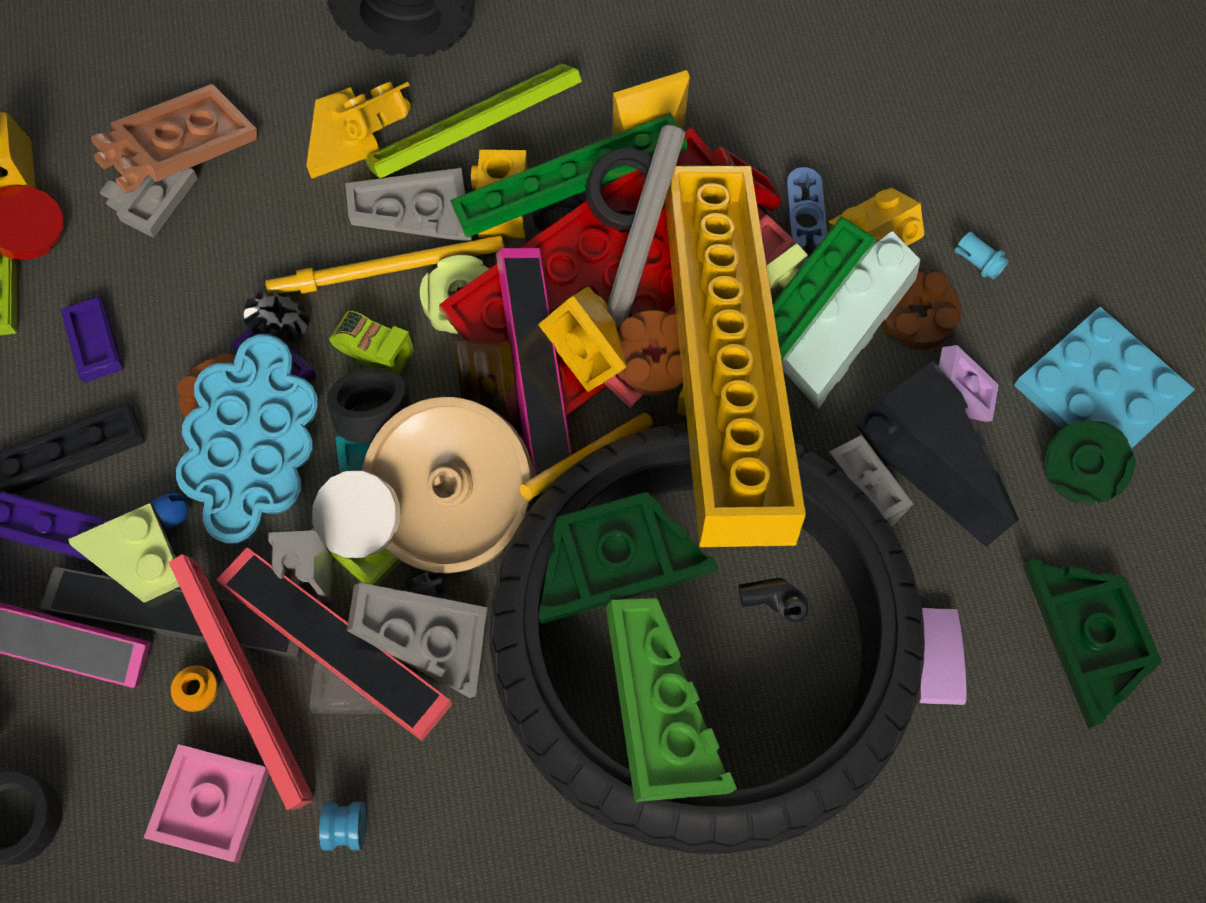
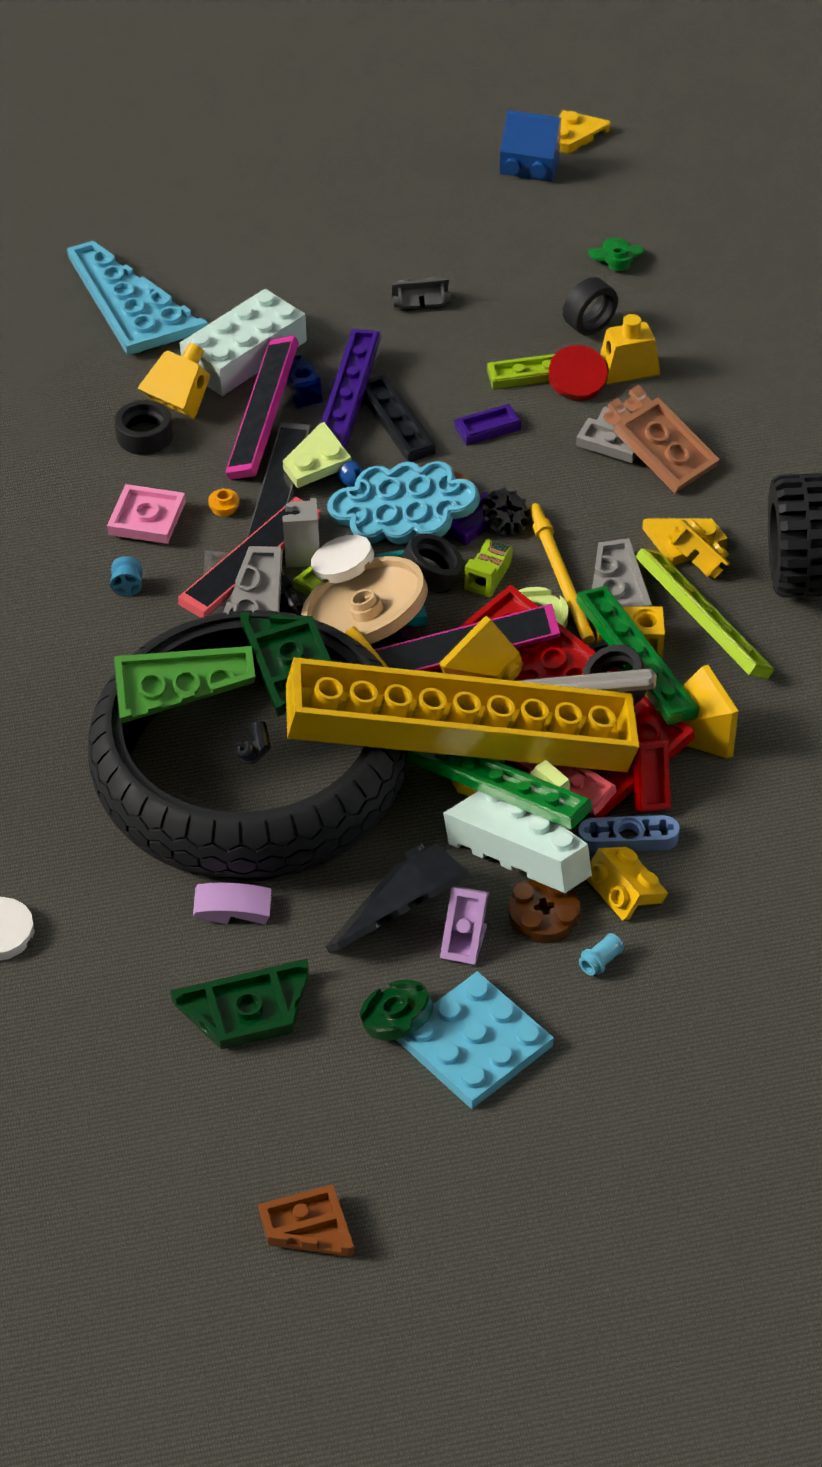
camera: 90 degrees right, 20 degrees down
(242, 683) = (223, 514): coral tile -> none
(488, 375) = (458, 614): dark brown plate -> none
(869, 473) = (369, 851): light grey hinge -> none

